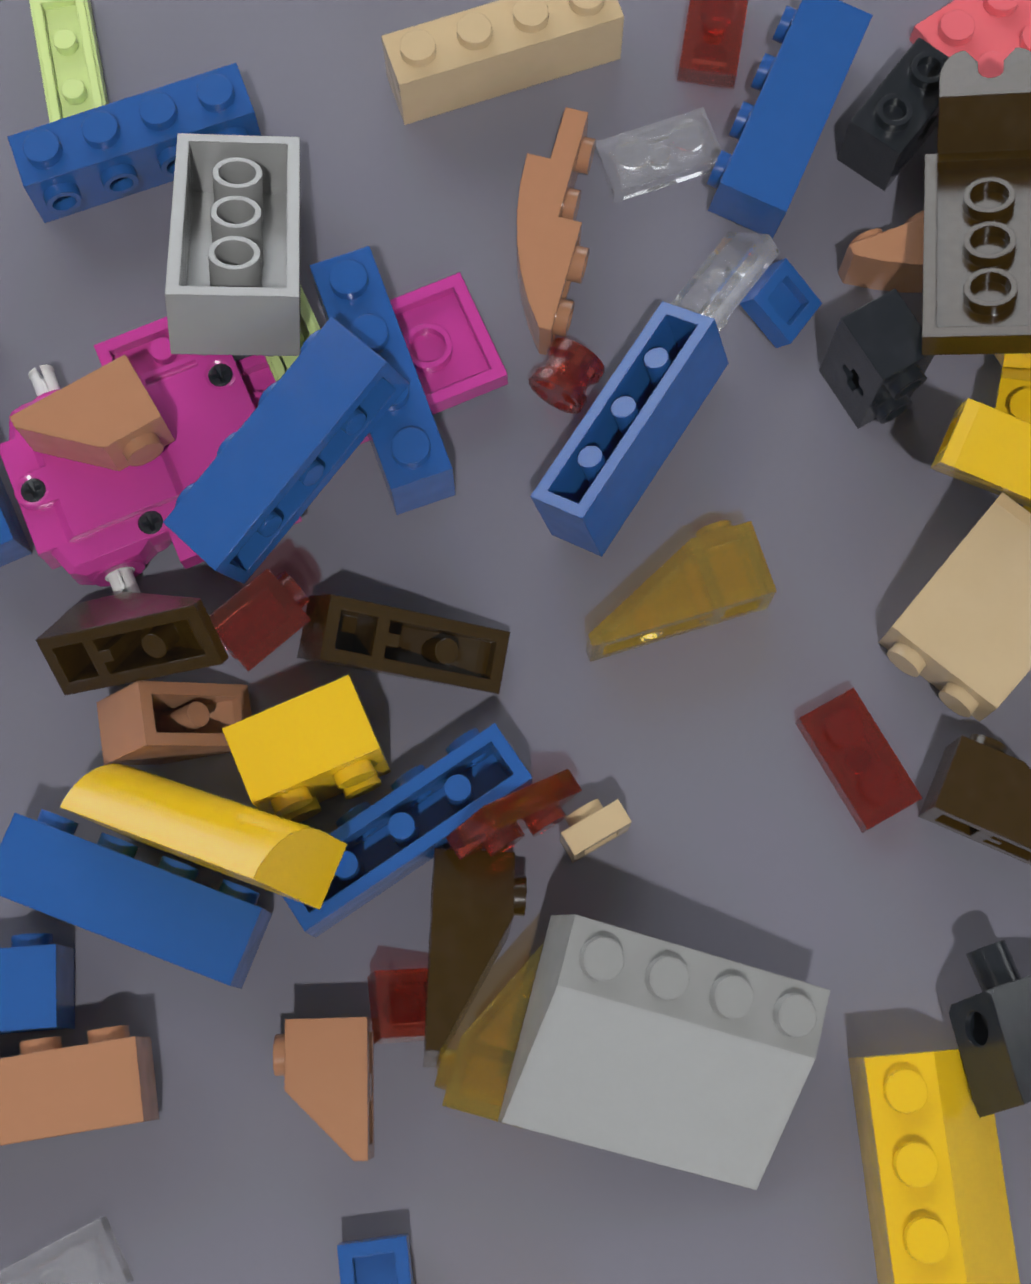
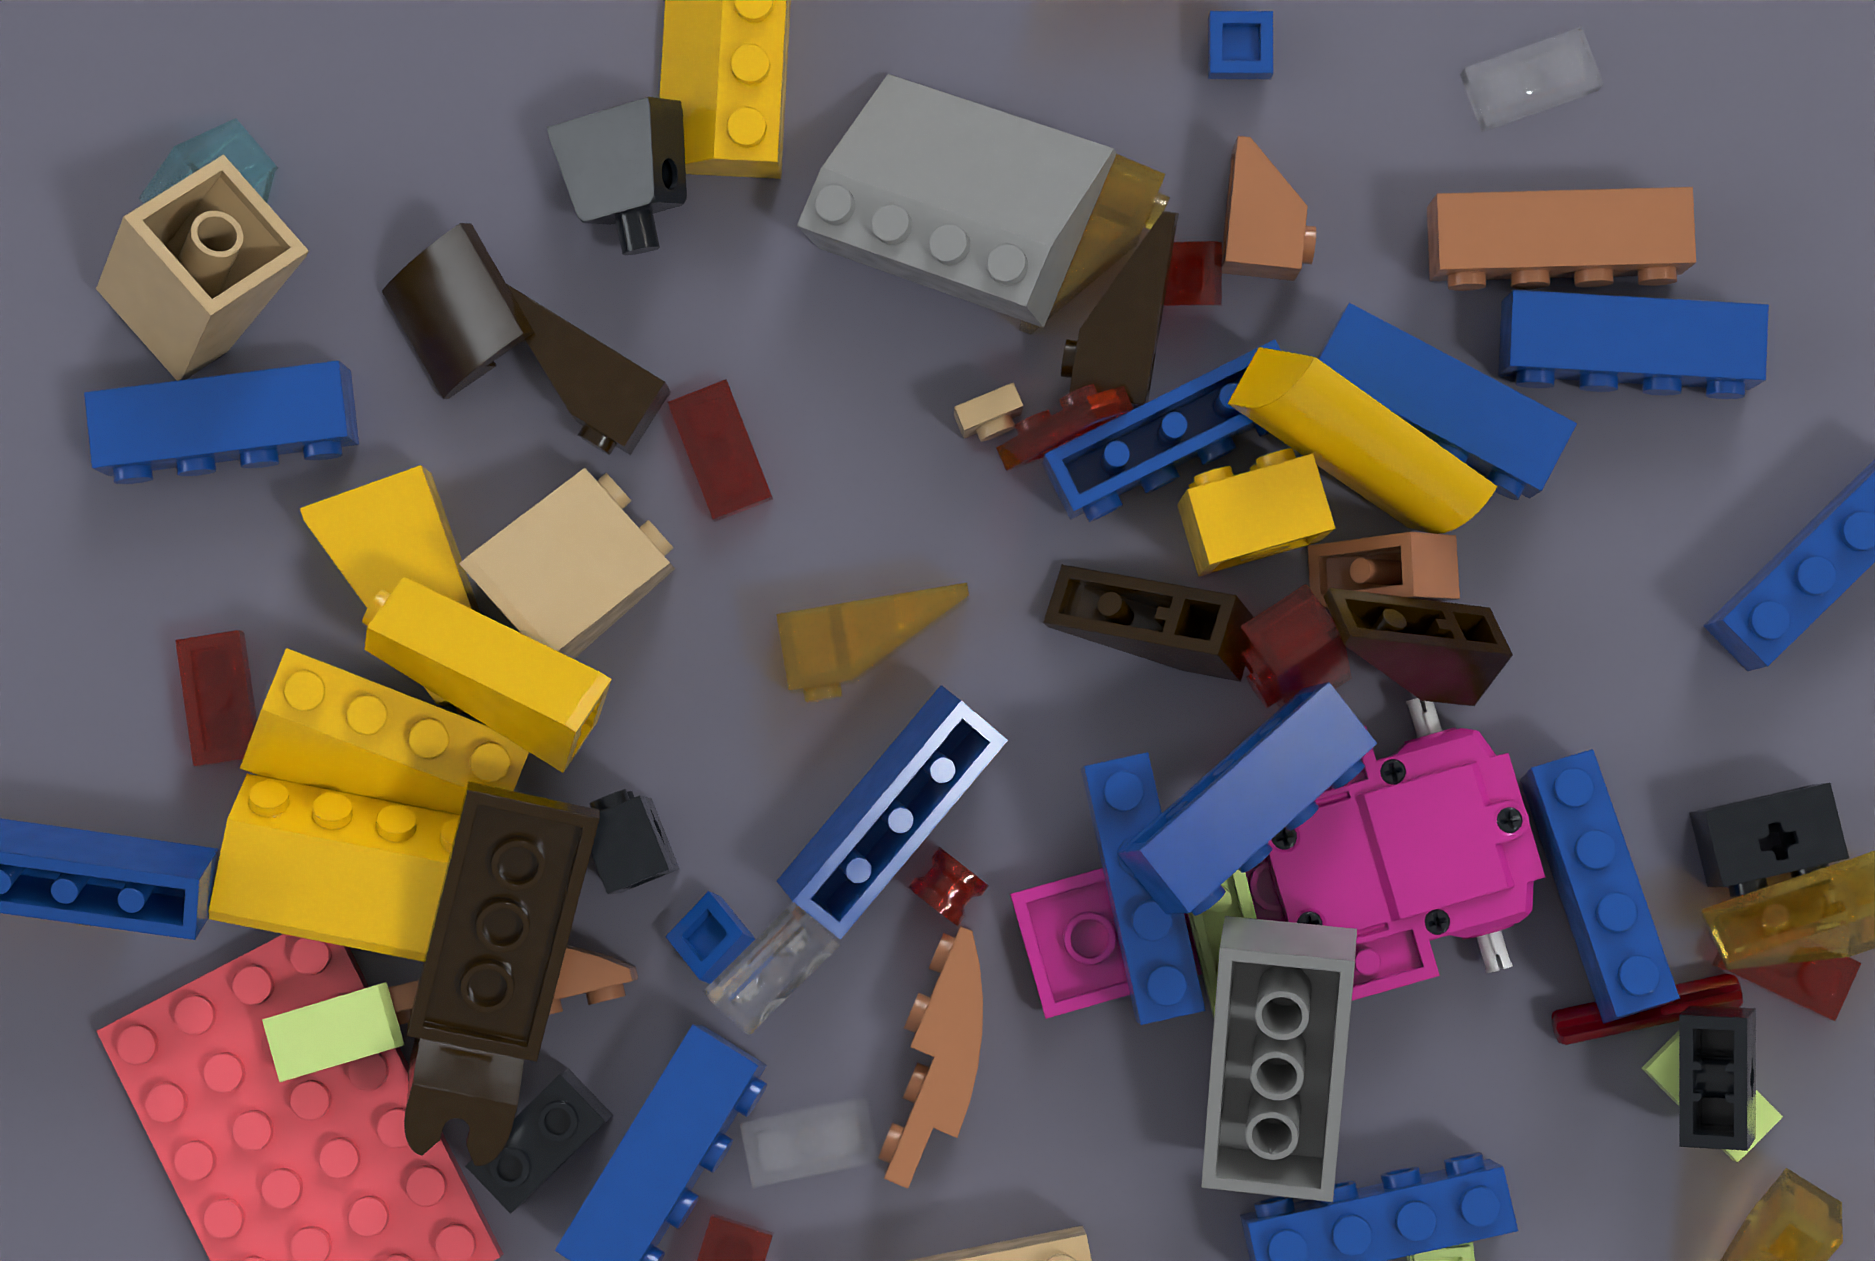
camera: 175 degrees left, 10 degrees up
(97, 420) = (1431, 870): nougat slope -> none

